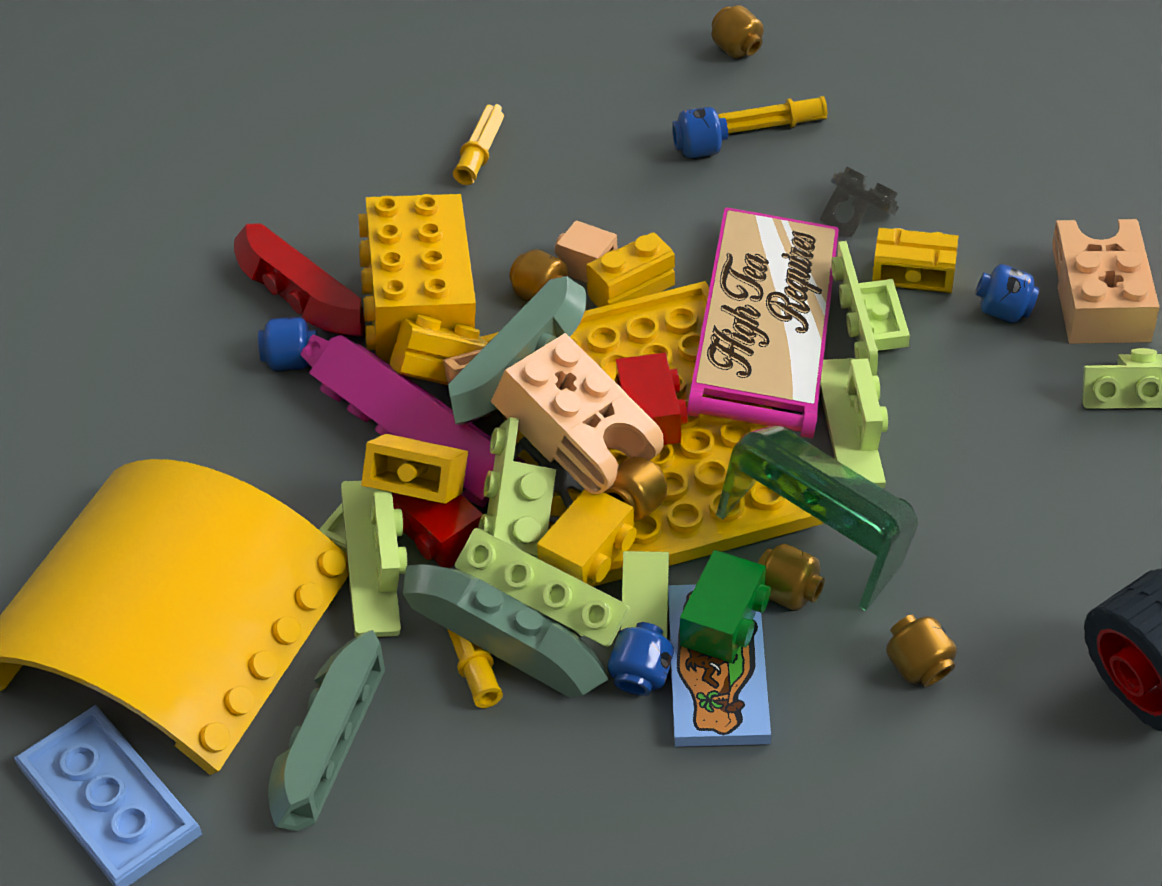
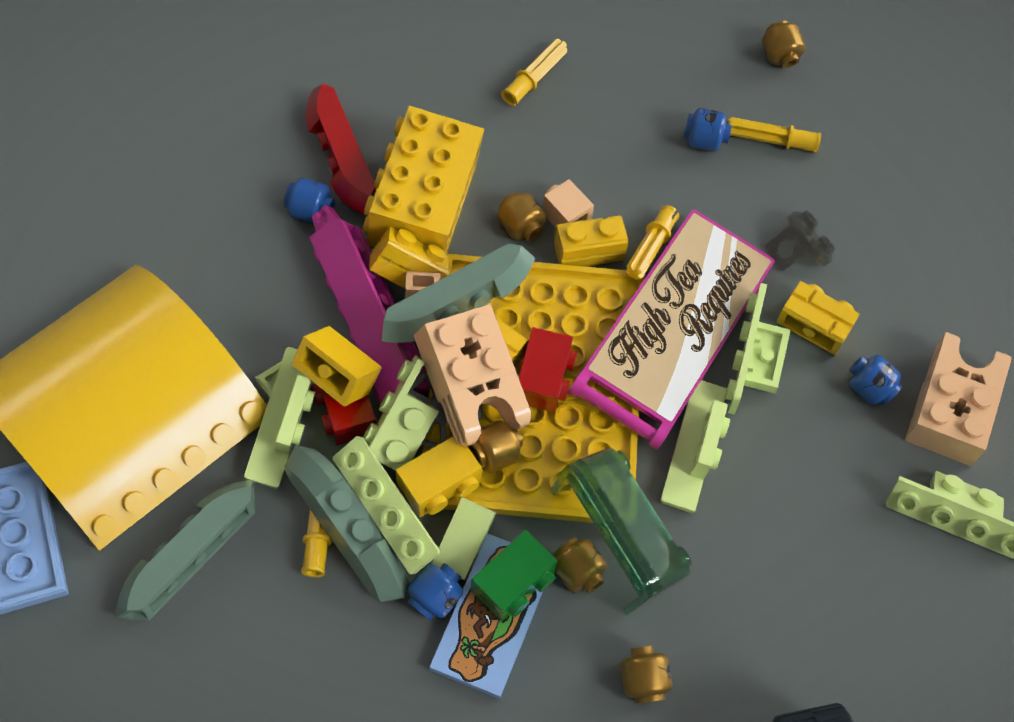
camera: 15 degrees right, 15 degrees up
(699, 243) = (656, 234): none -> yellow axle

